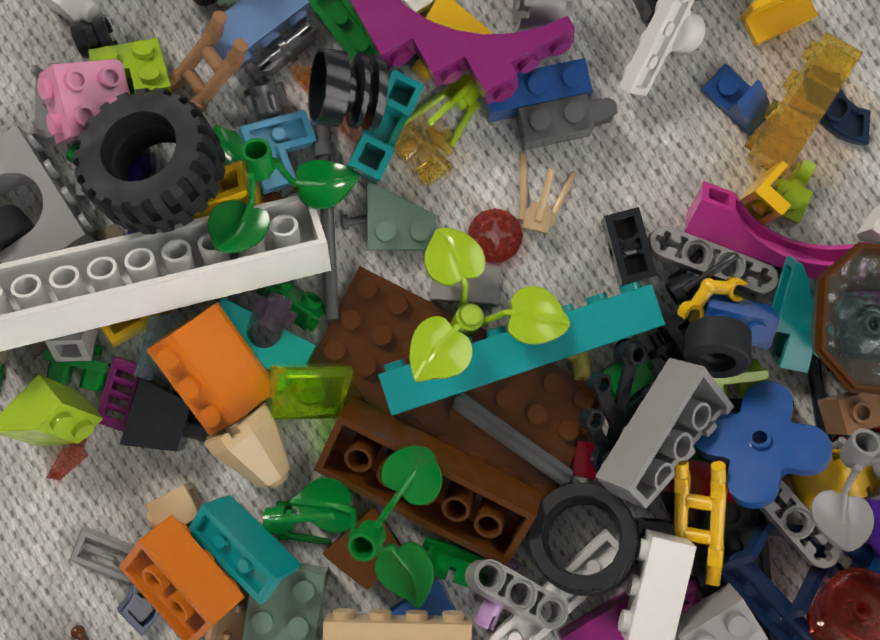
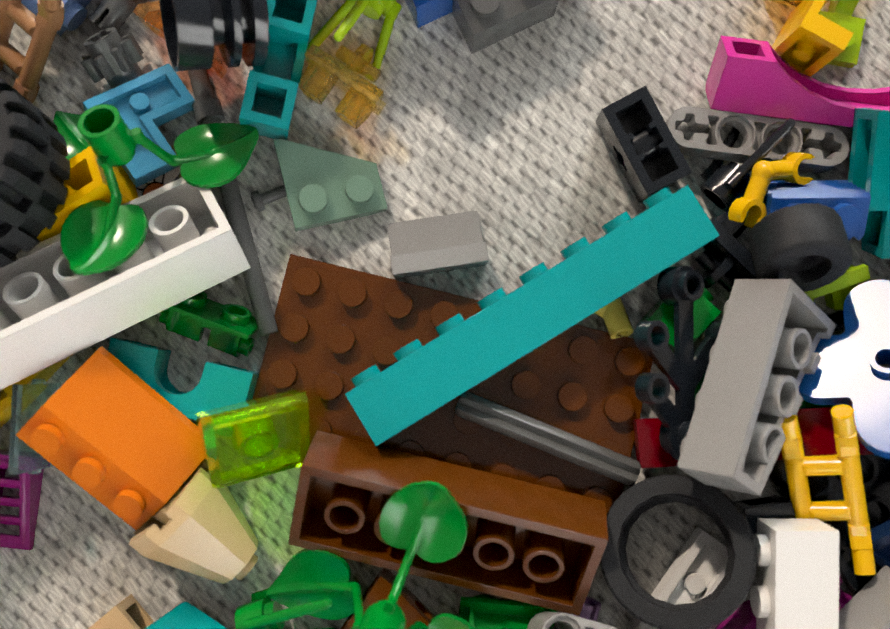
camera: 15 degrees left, 0 degrees up
(160, 419) = (63, 524): black torso -> none
(274, 312) = (186, 342): clear purple gear -> none
(445, 349) = (428, 340): lime plant -> none
(506, 224) = (449, 190): clear red gear -> none
(538, 216) = (511, 134): tan plant -> none

